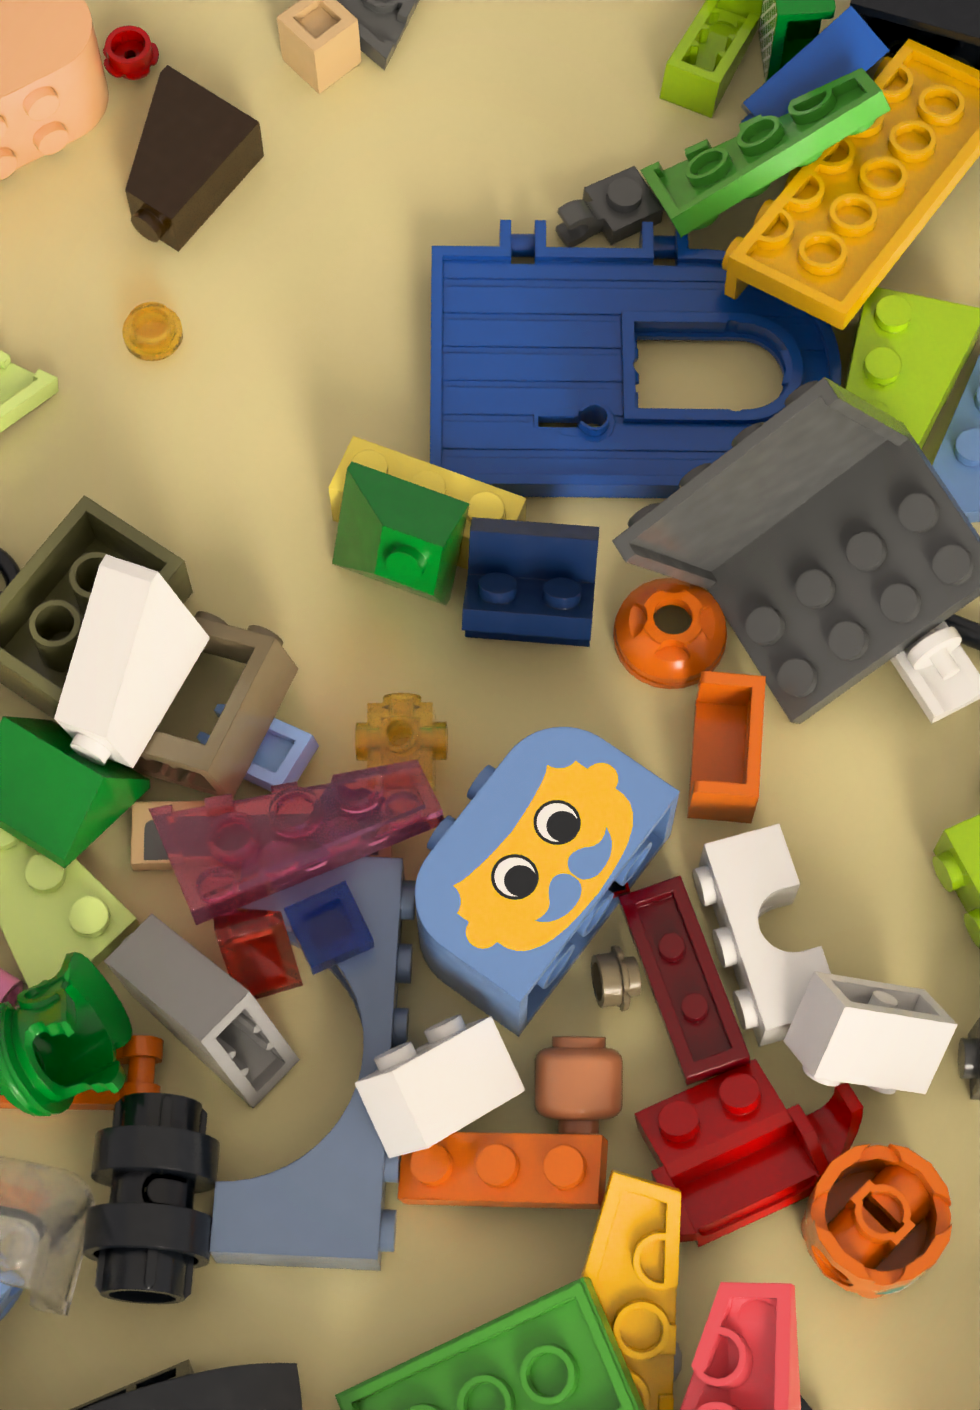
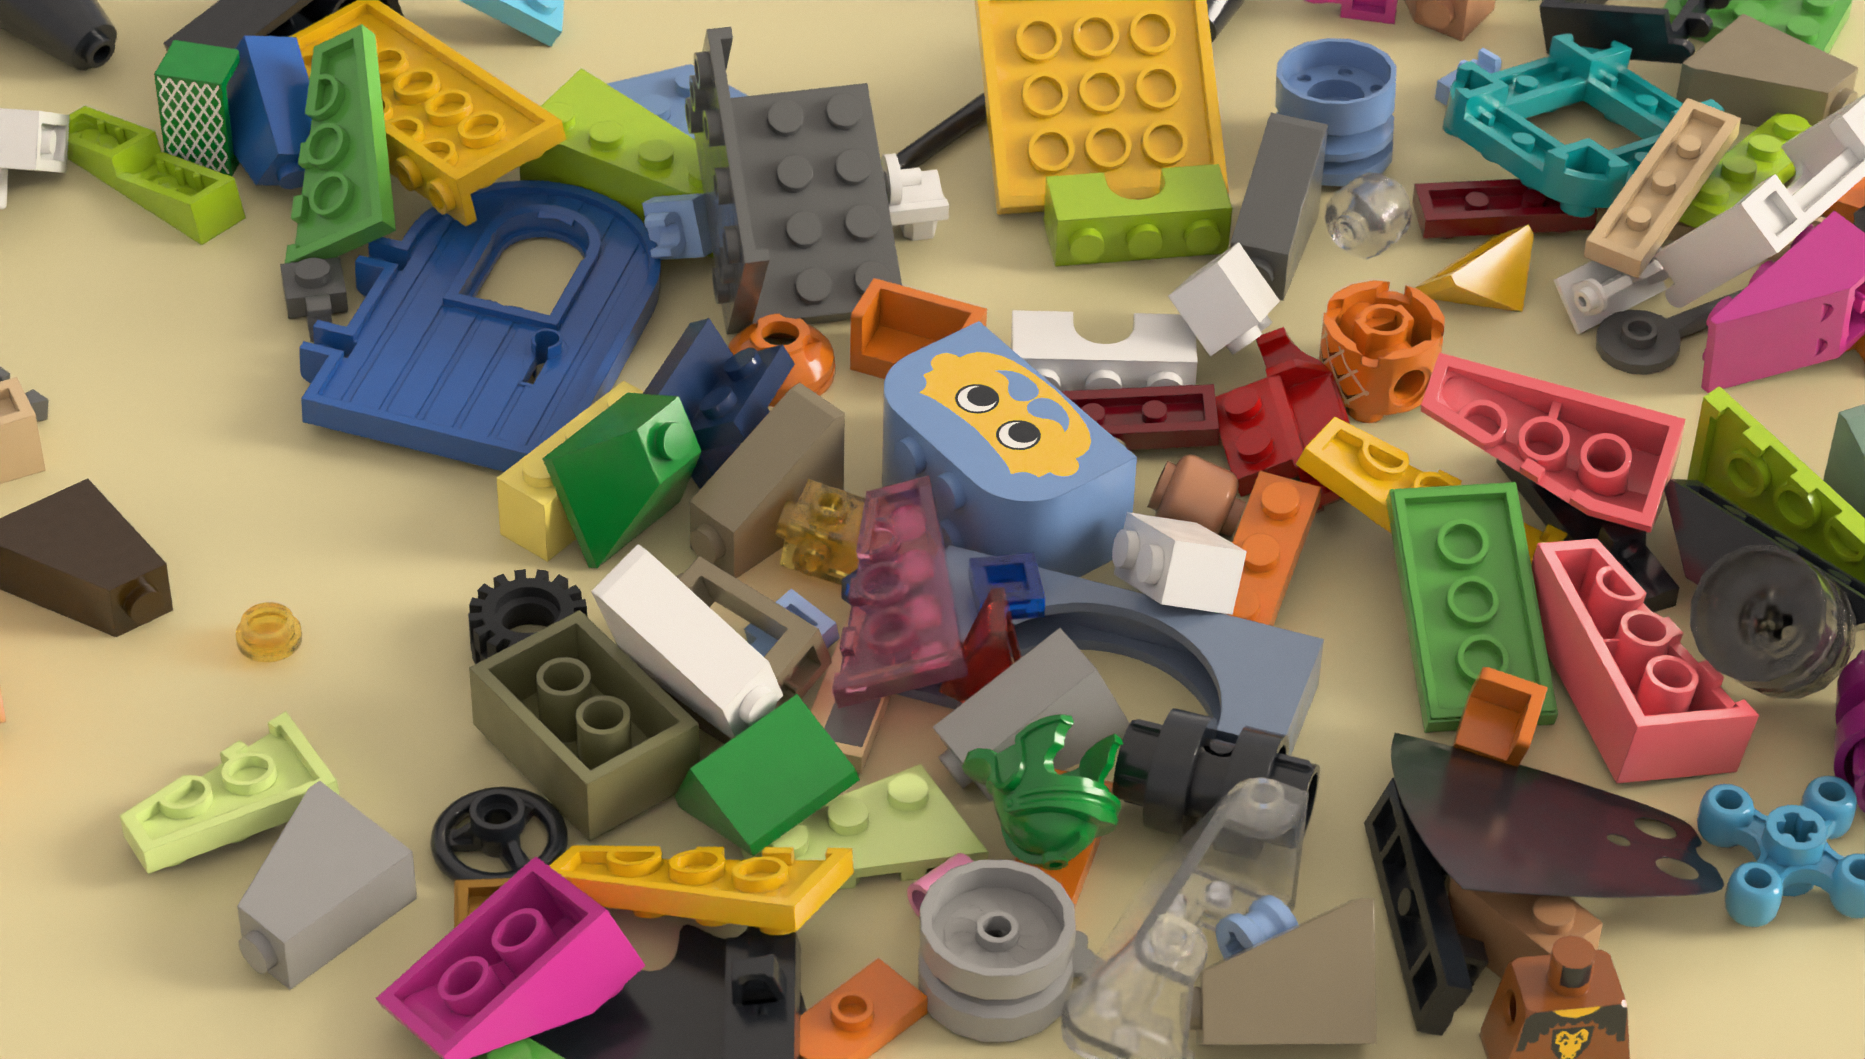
camera: 75 degrees left, 25 degrees down
(217, 499) = (518, 604): none -> black tyre
(464, 674) = (742, 502): none -> dark tan slope

